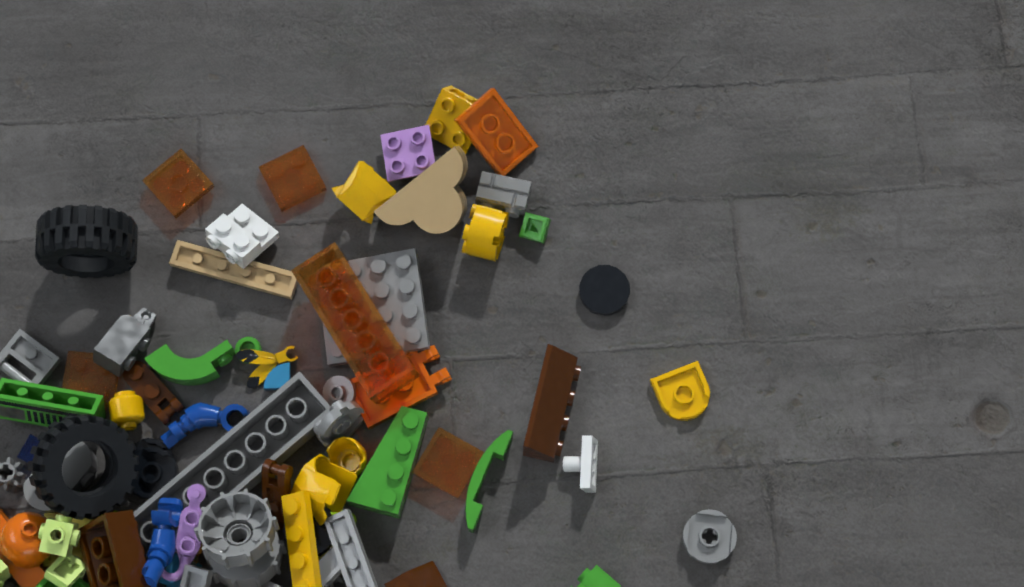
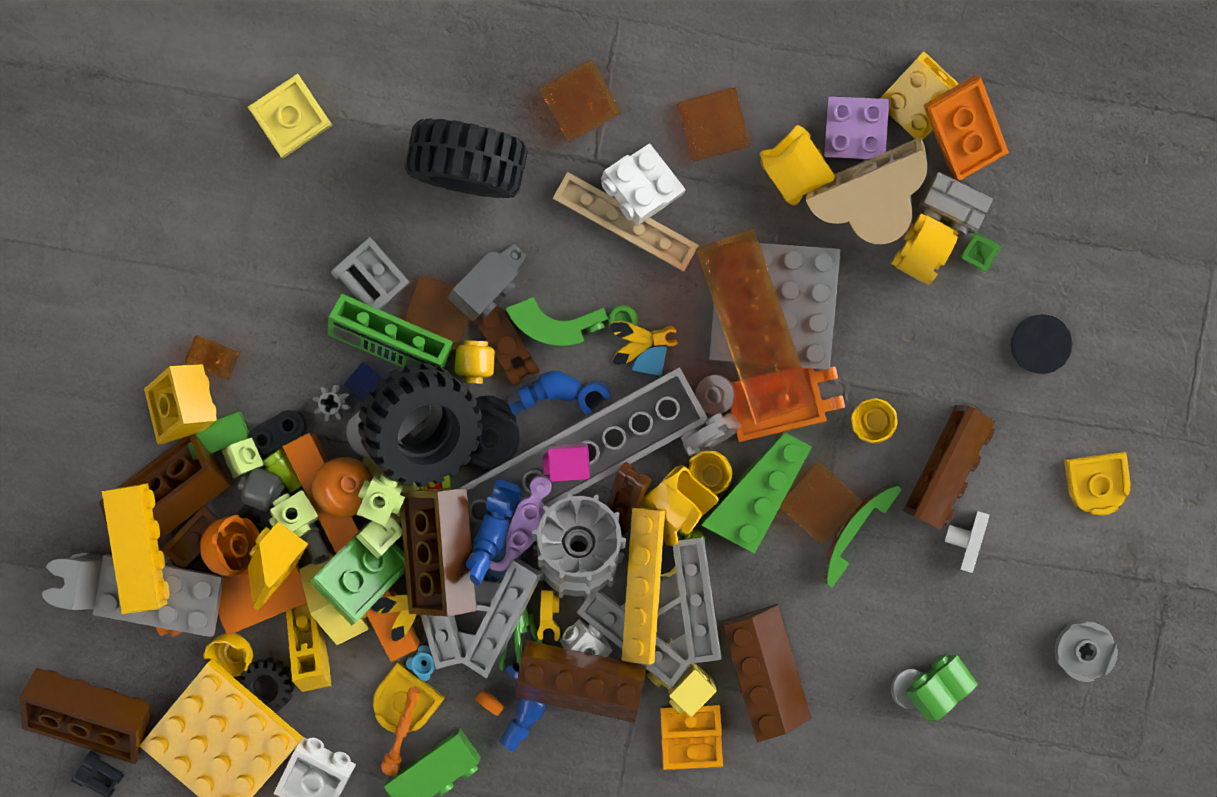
camera: 15 degrees right, 15 degrees up
(212, 461) = (567, 462): none -> dark pink brick
(477, 382) = (874, 421): none -> yellow hair

